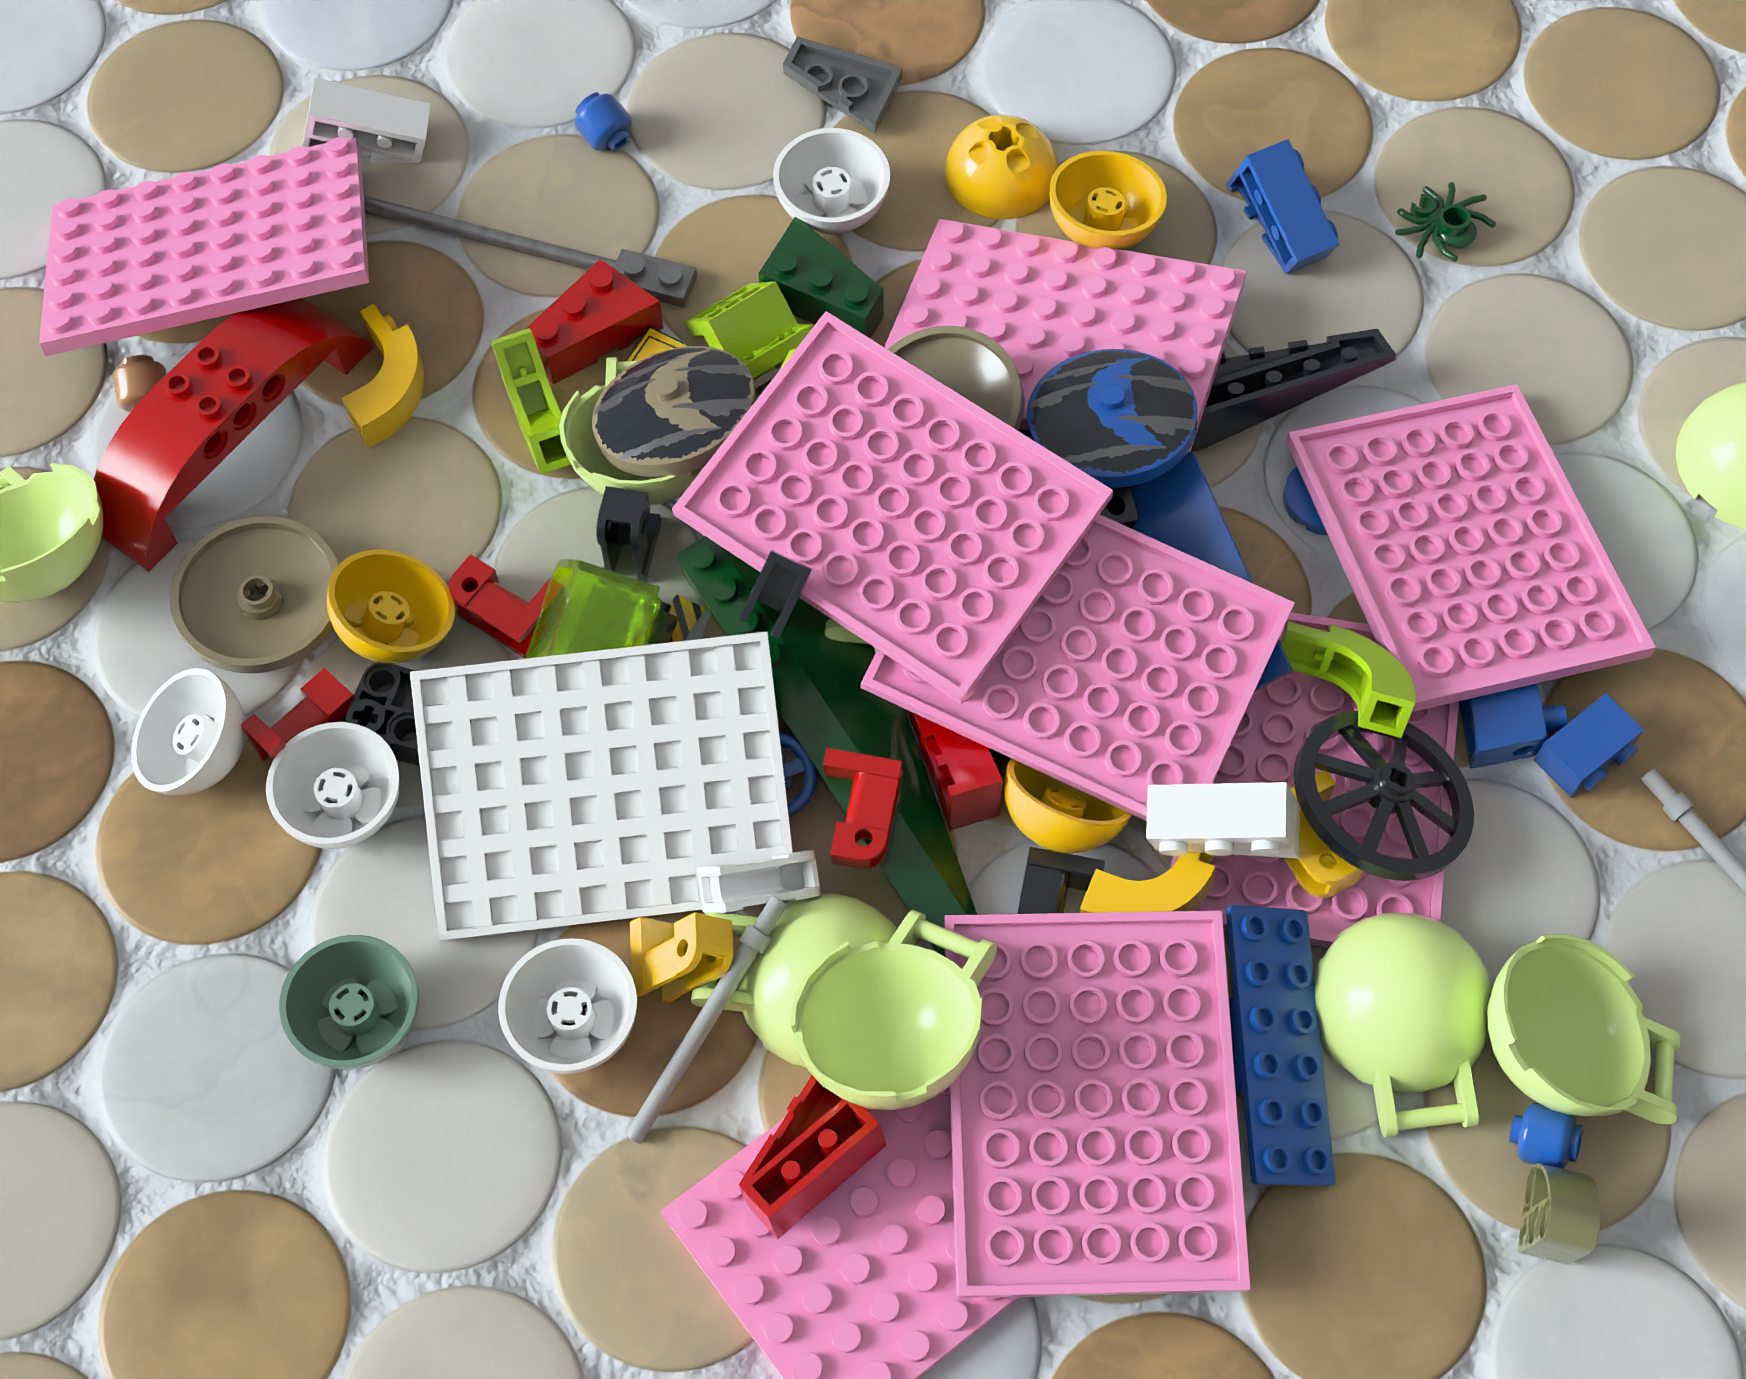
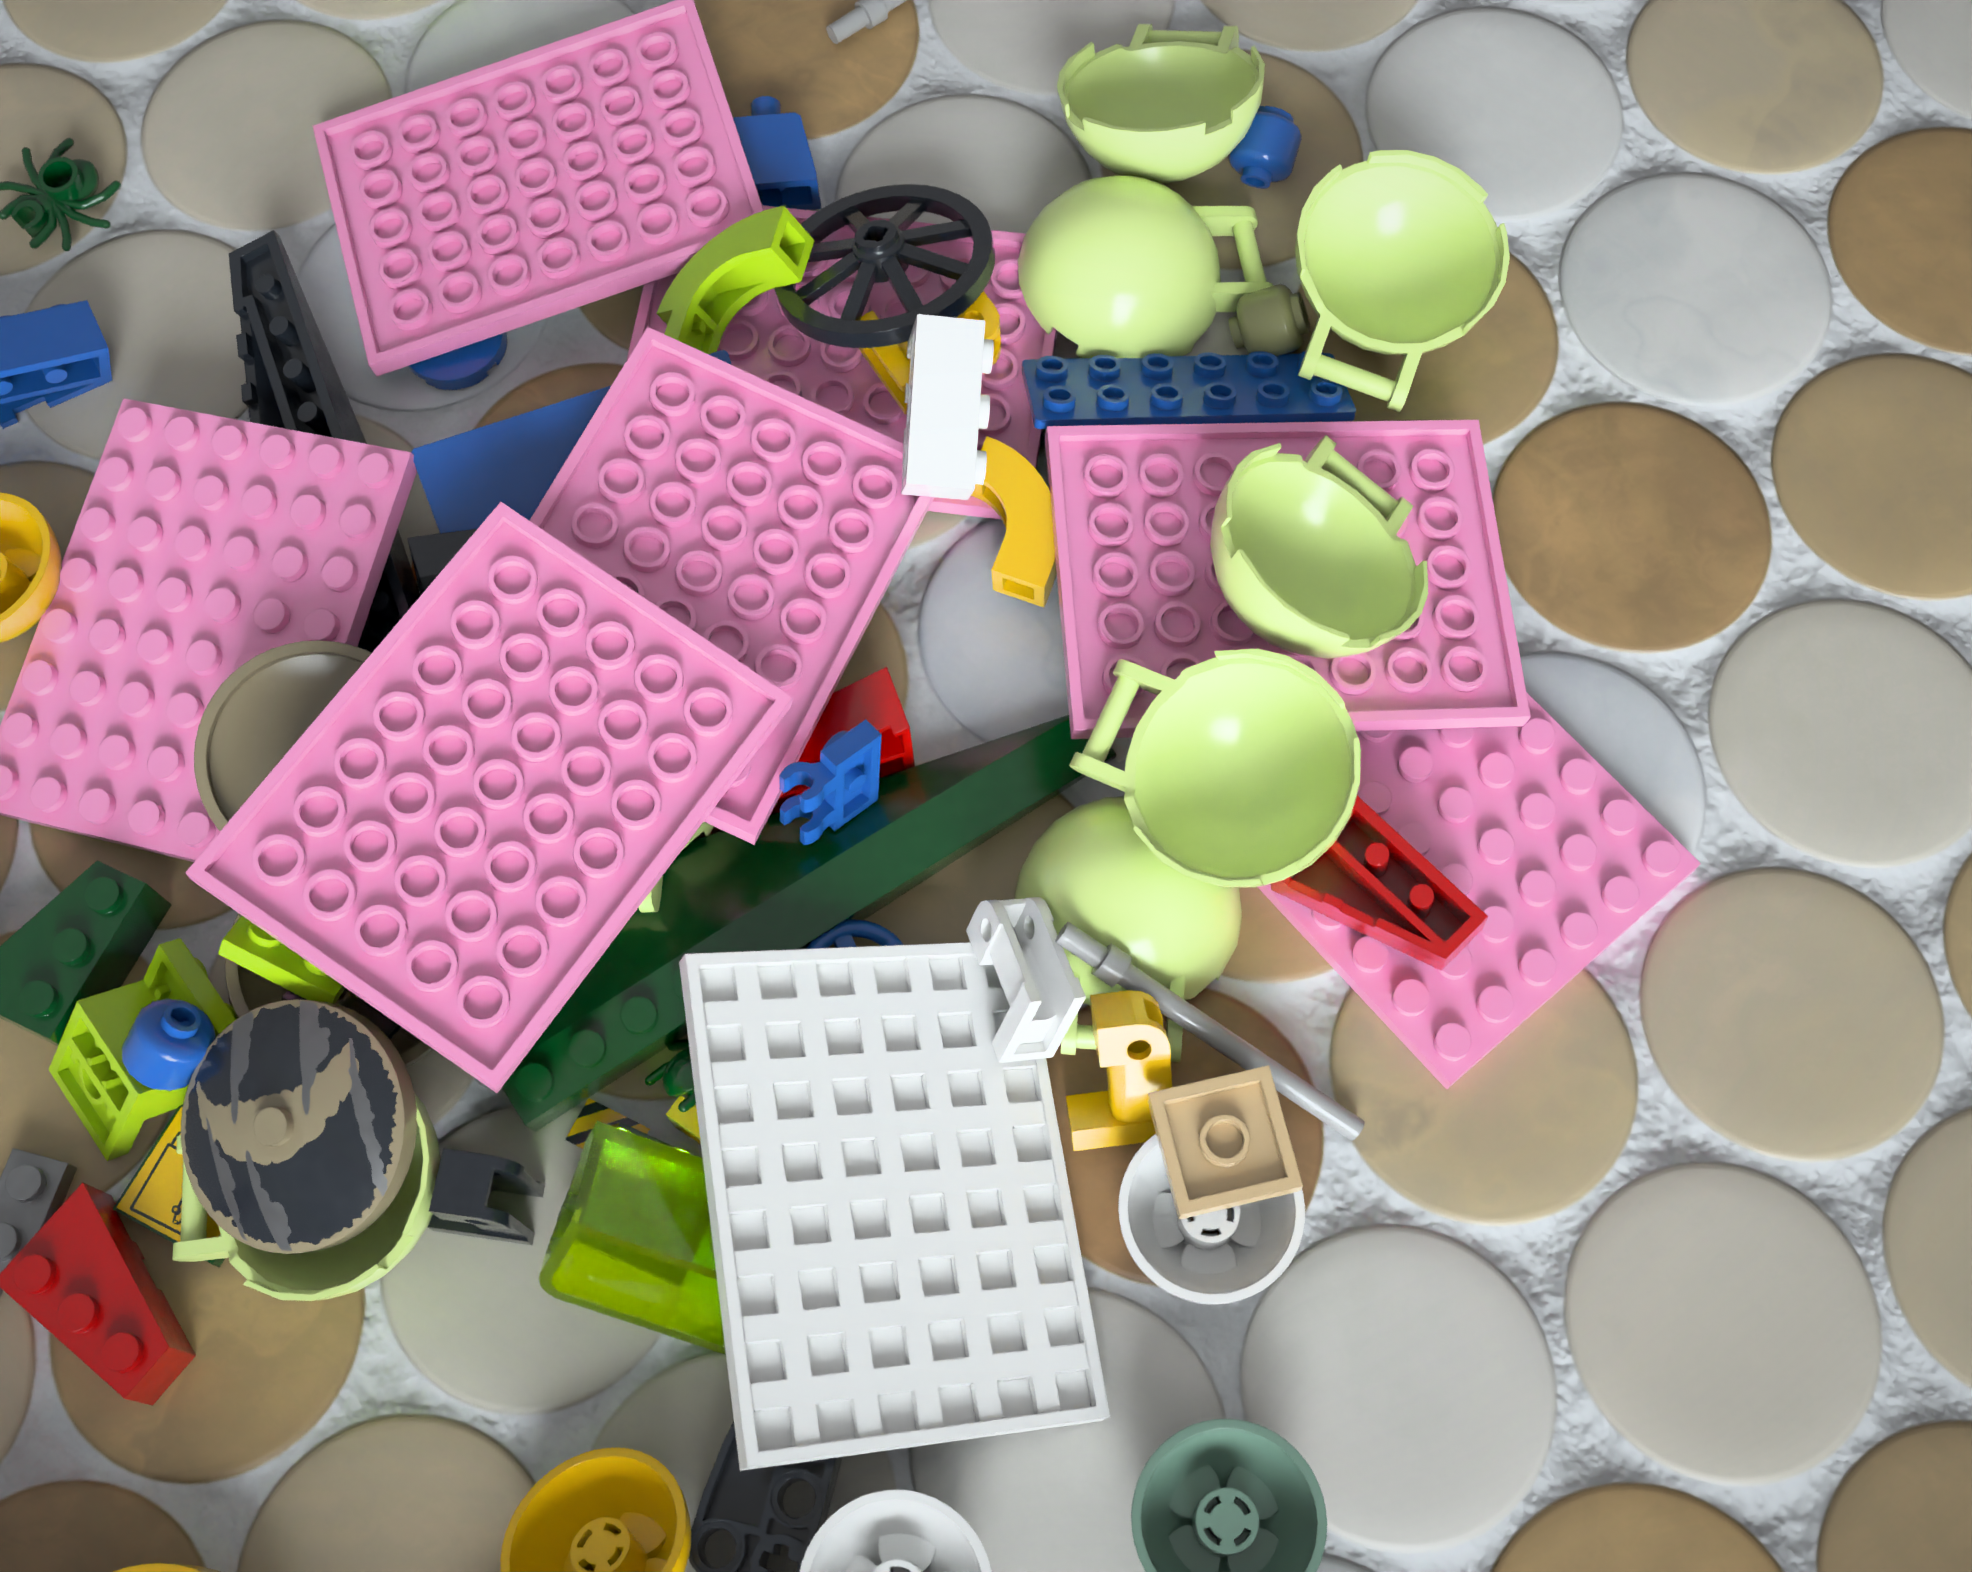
camera: 90 degrees left, 5 degrees up
(494, 608) = (590, 1390): red piece -> none
(531, 398) = (247, 1368): lime arch -> none
(610, 1008) = (1224, 1142): none -> tan plate
(738, 332) = (167, 1044): none -> blue head
(778, 588) = (636, 944): black piece -> none
(869, 808) = (921, 834): red piece -> none
(907, 741) = (839, 784): none -> blue plate
(1050, 876) = (1007, 647): black piece -> none
(1057, 813) = (915, 616): yellow piece -> none
(1082, 1097) = (1315, 554): none -> yellowish green windscreen
(1114, 415) = (353, 535): dish -> none
(1357, 1125) = (1270, 321): none -> olive head
(1400, 1219) = (1396, 264): none -> yellowish green windscreen
(1559, 1215) = (1361, 115): olive beam -> none
(1589, 745) = (802, 80): blue brick -> none

